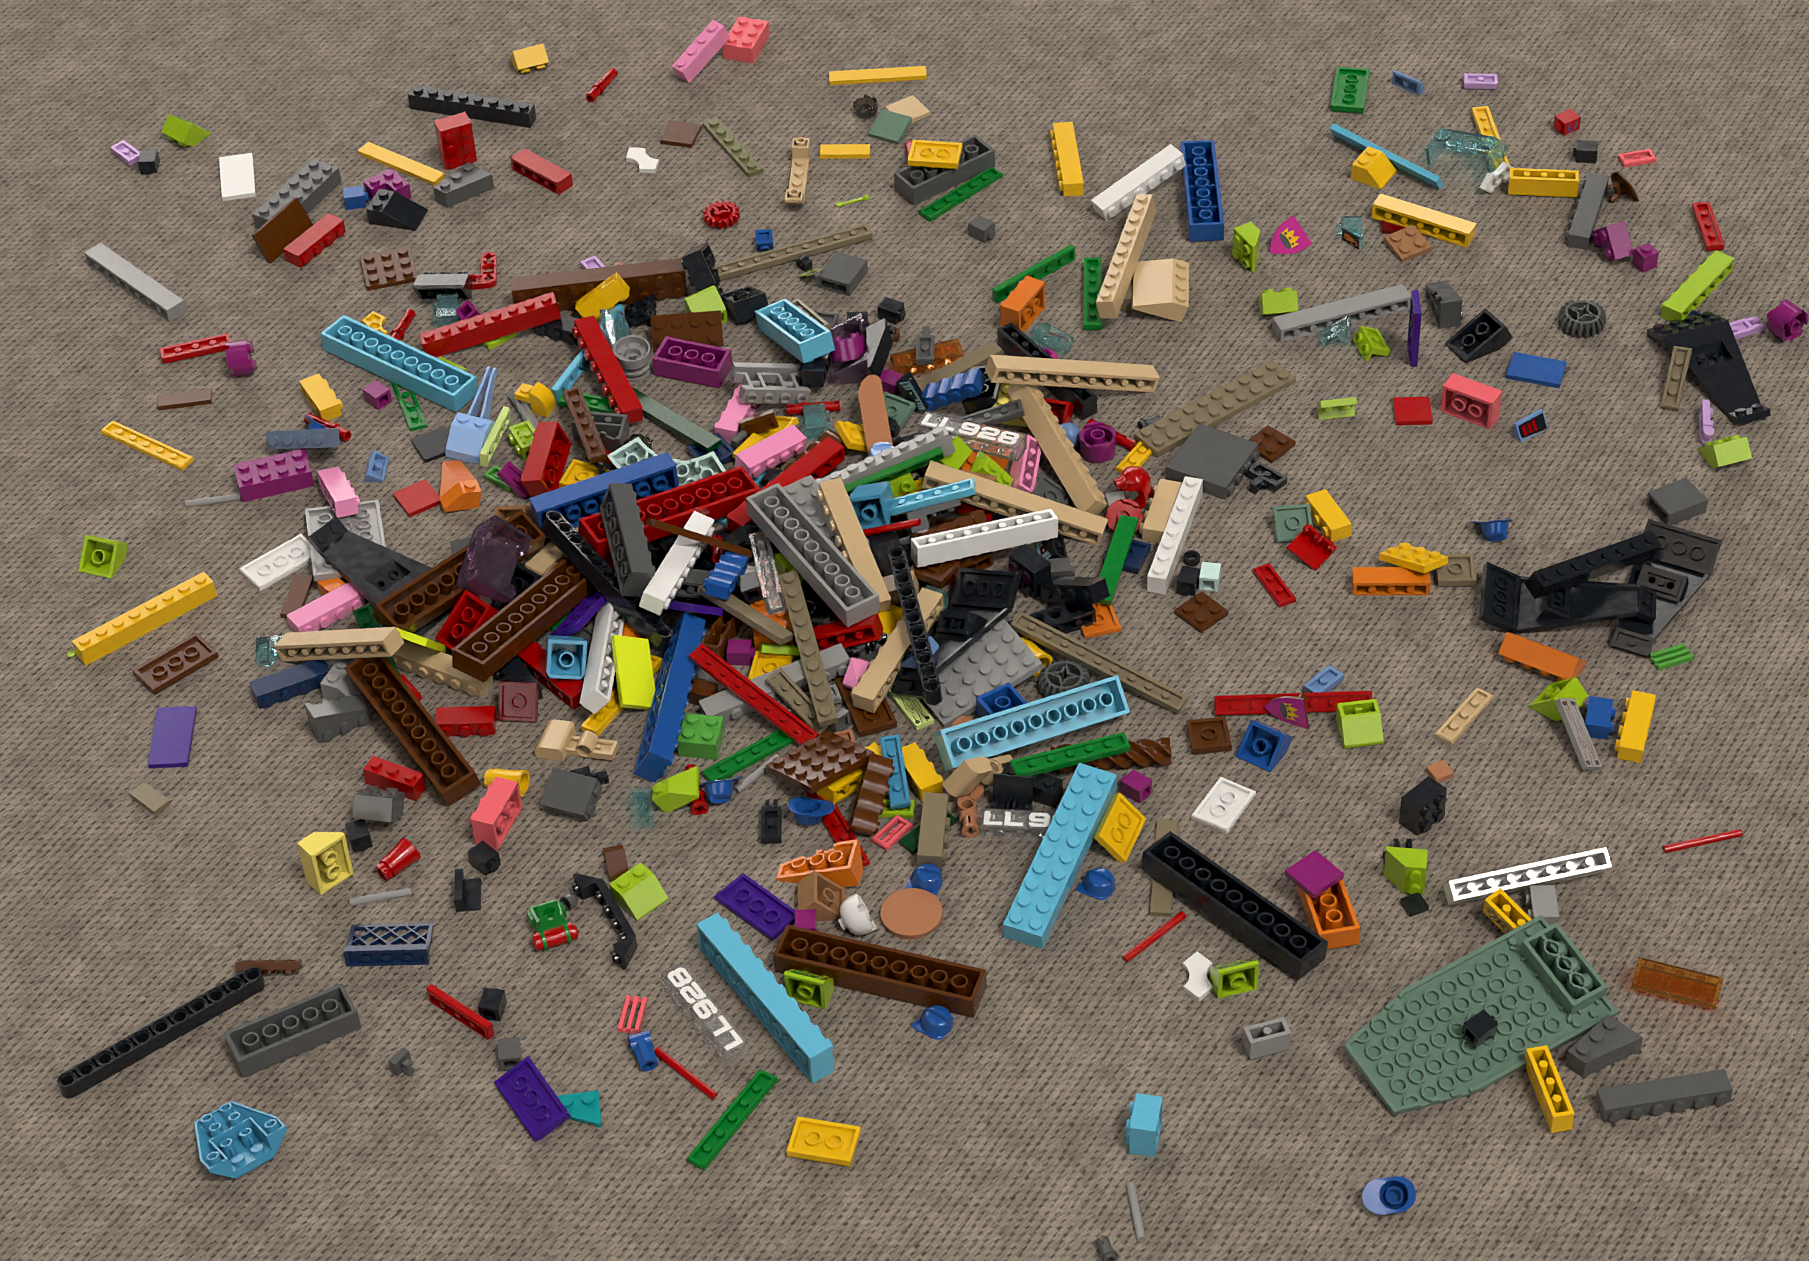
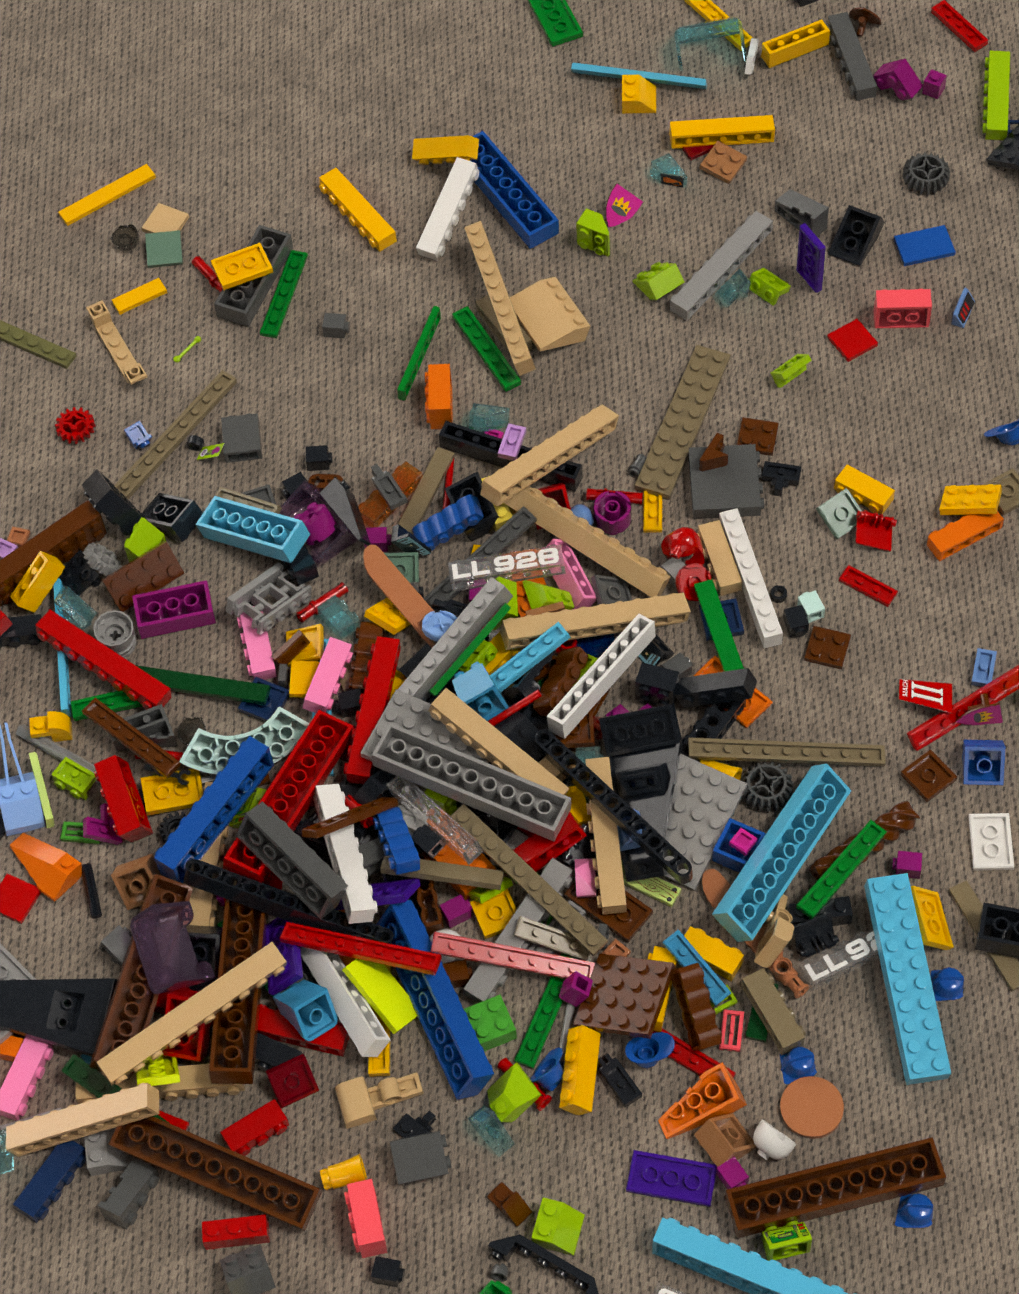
camera: 30 degrees left, 15 degrees up
(471, 606) = (192, 1013): none -> tan brick
(477, 517) = (91, 891): none -> black axle
(637, 630) = (360, 948): none -> red tile
(663, 303) = (101, 559): none -> light grey gear
(744, 797) = (580, 1070): none -> yellow brick
(786, 740) = (575, 988): none -> magenta brick
(1004, 700) = (743, 841): none -> dark pink tile
(1053, 351) = (511, 442): none -> lavender plate
(1160, 137) = (445, 149): none -> yellow brick
(1212, 432) = (713, 455): none -> reddish brown slope
(1257, 678) = (927, 694): none -> red sticker

